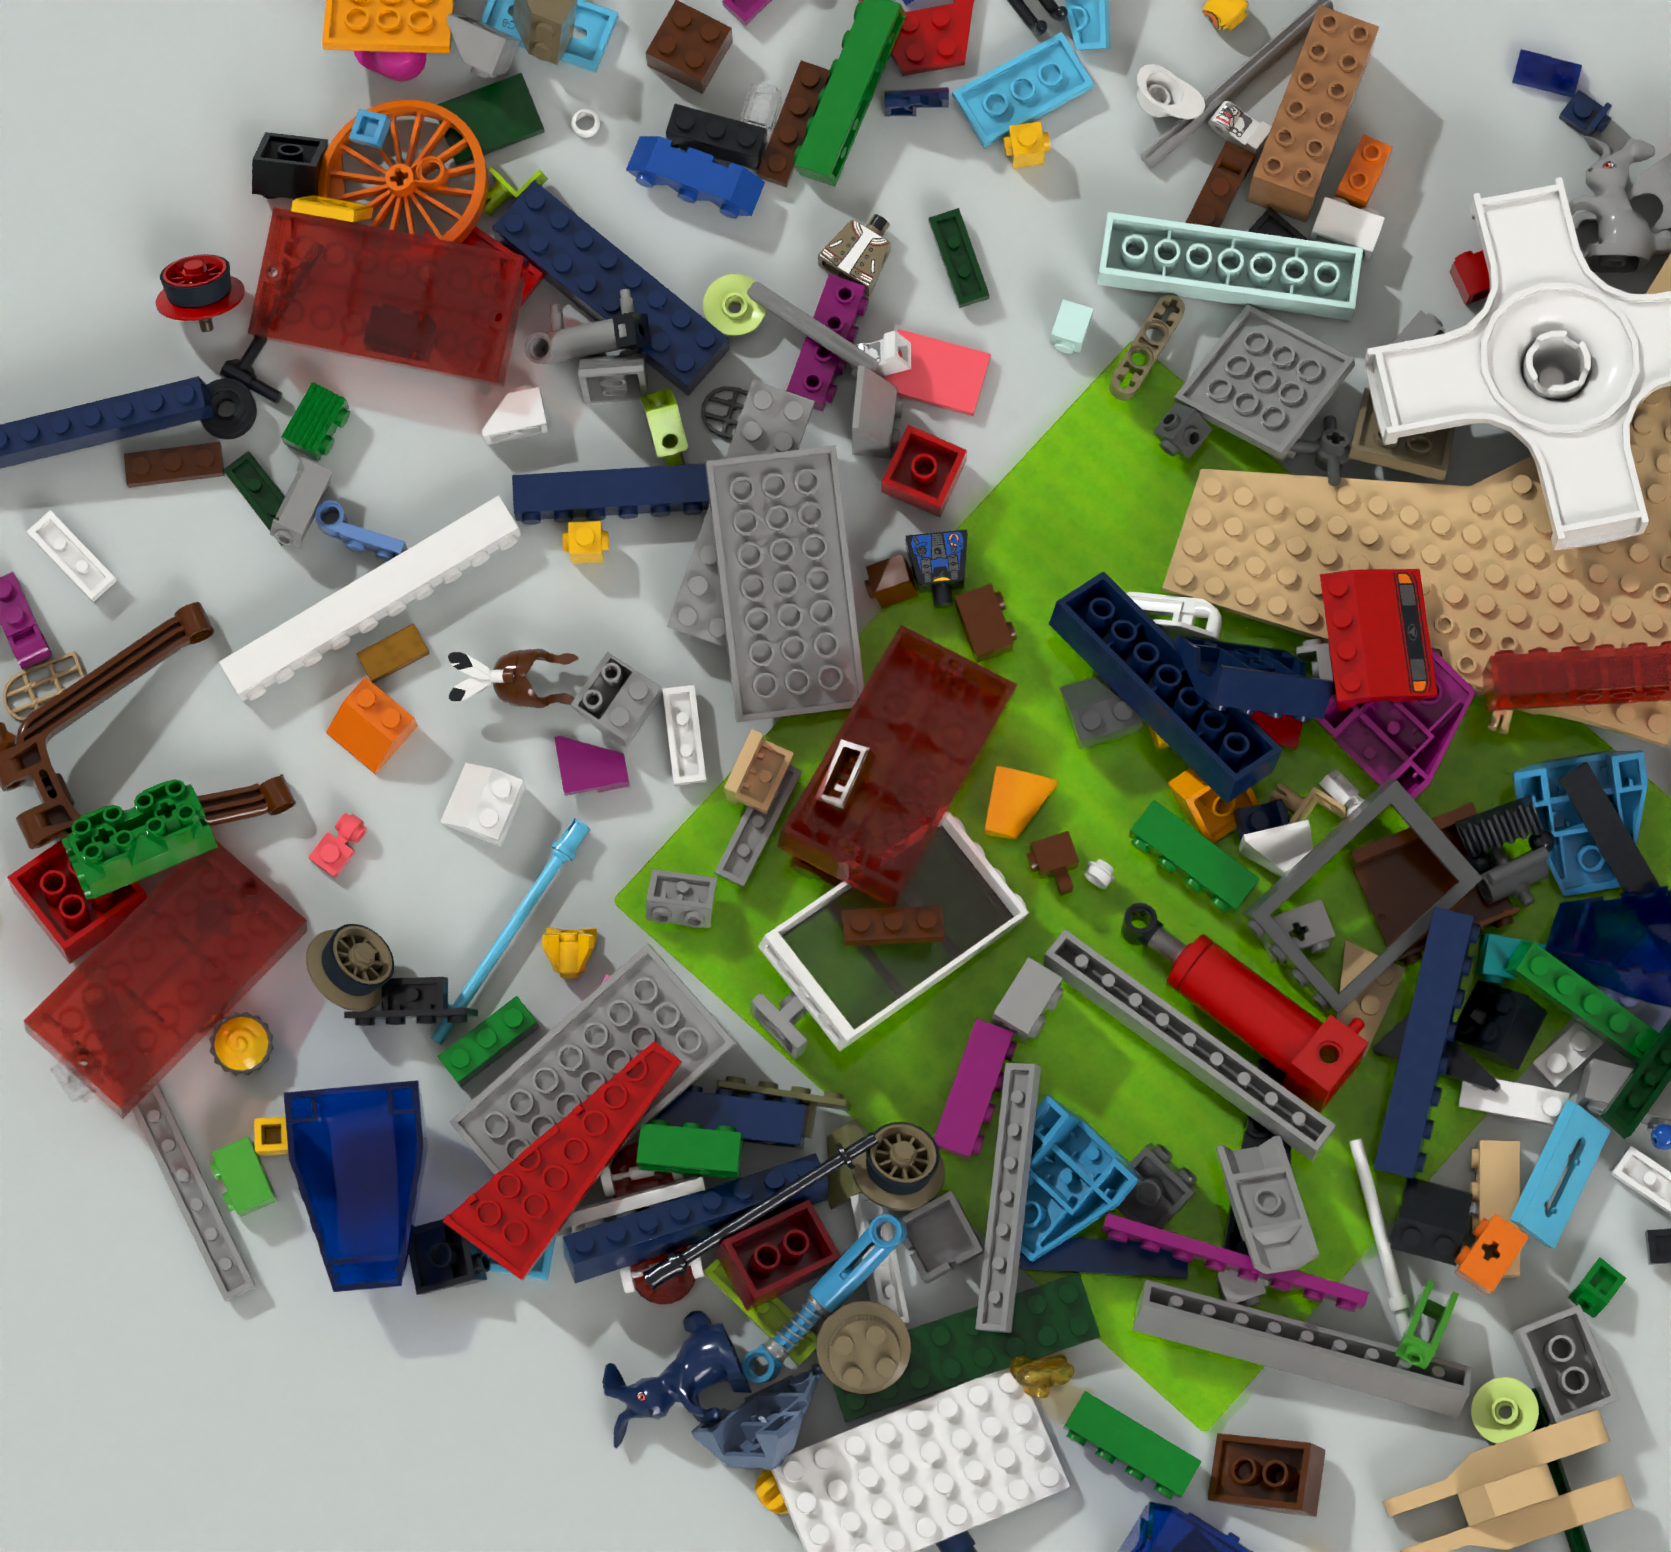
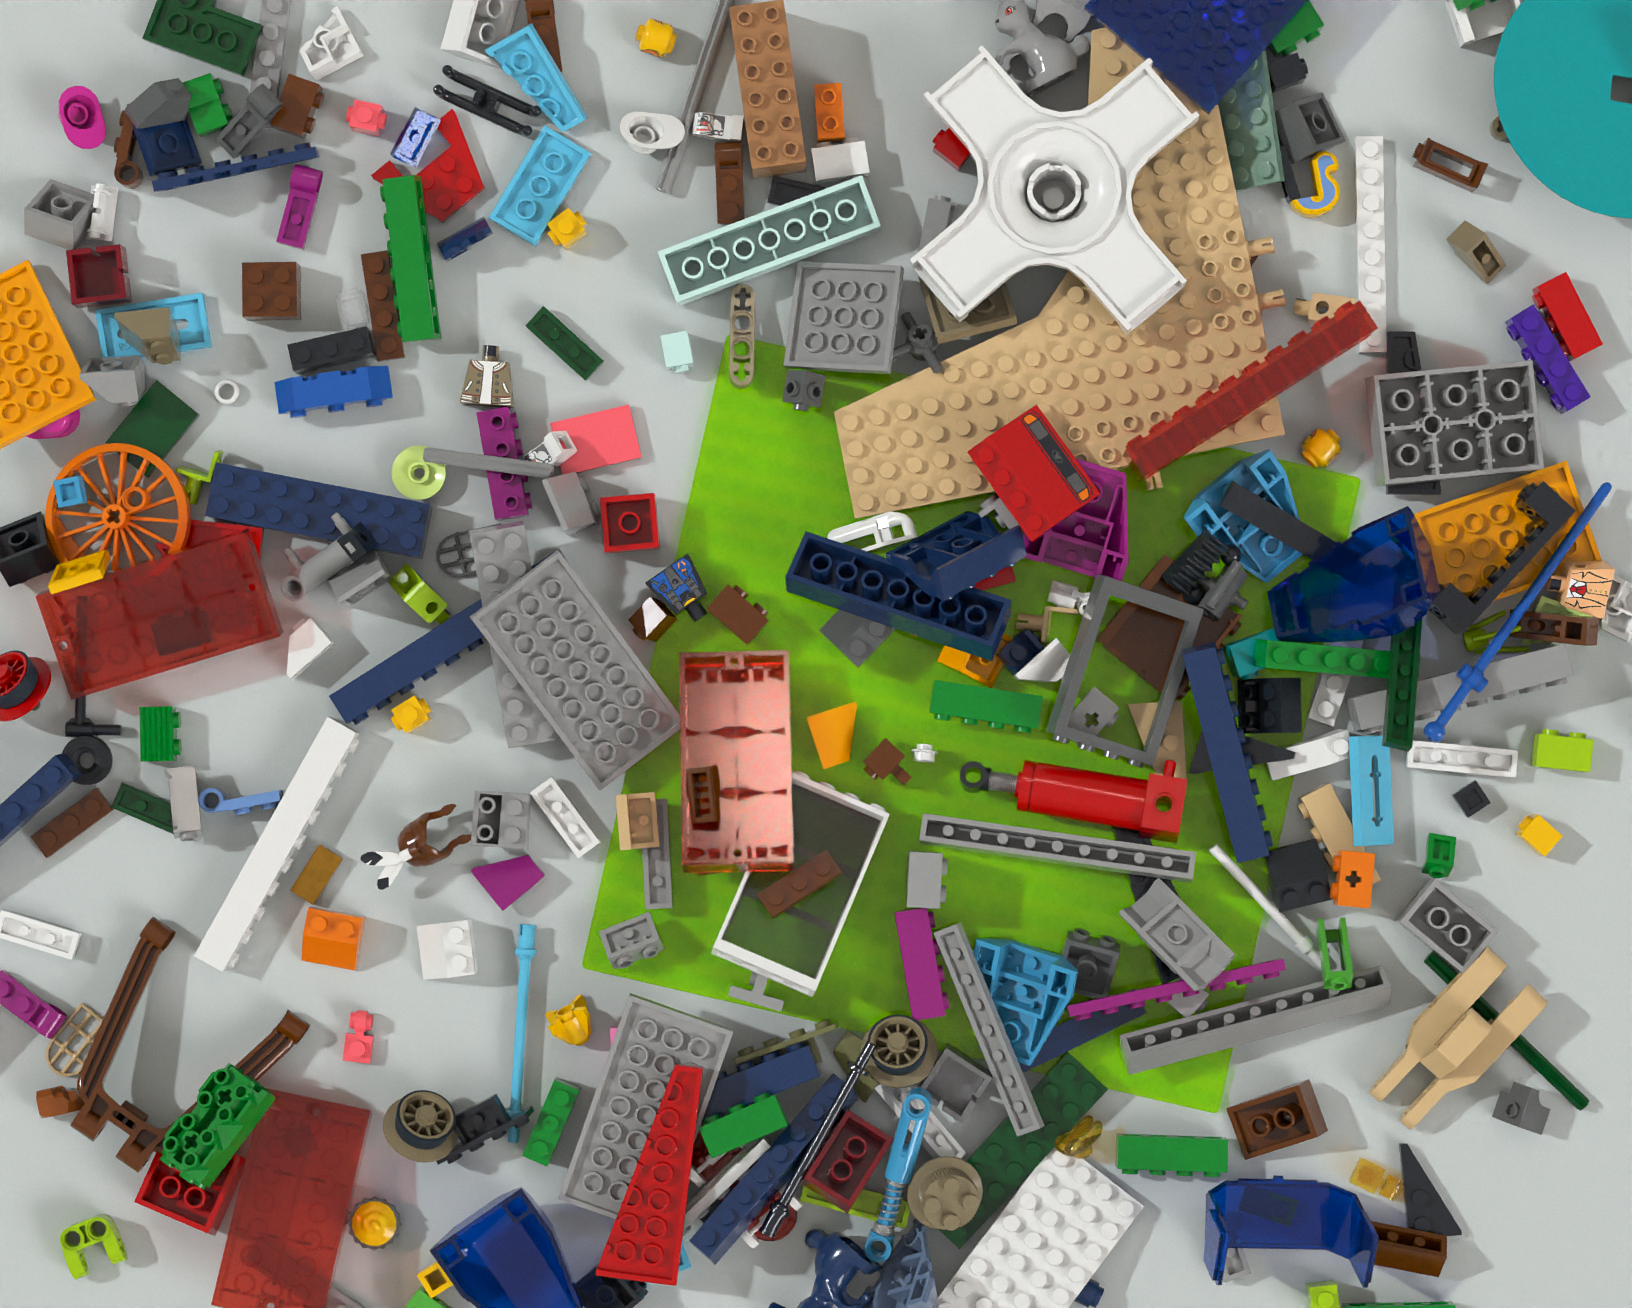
camera: 30 degrees left, 10 degrees up
(1499, 1394) = (1410, 991): yellowish green dish -> none

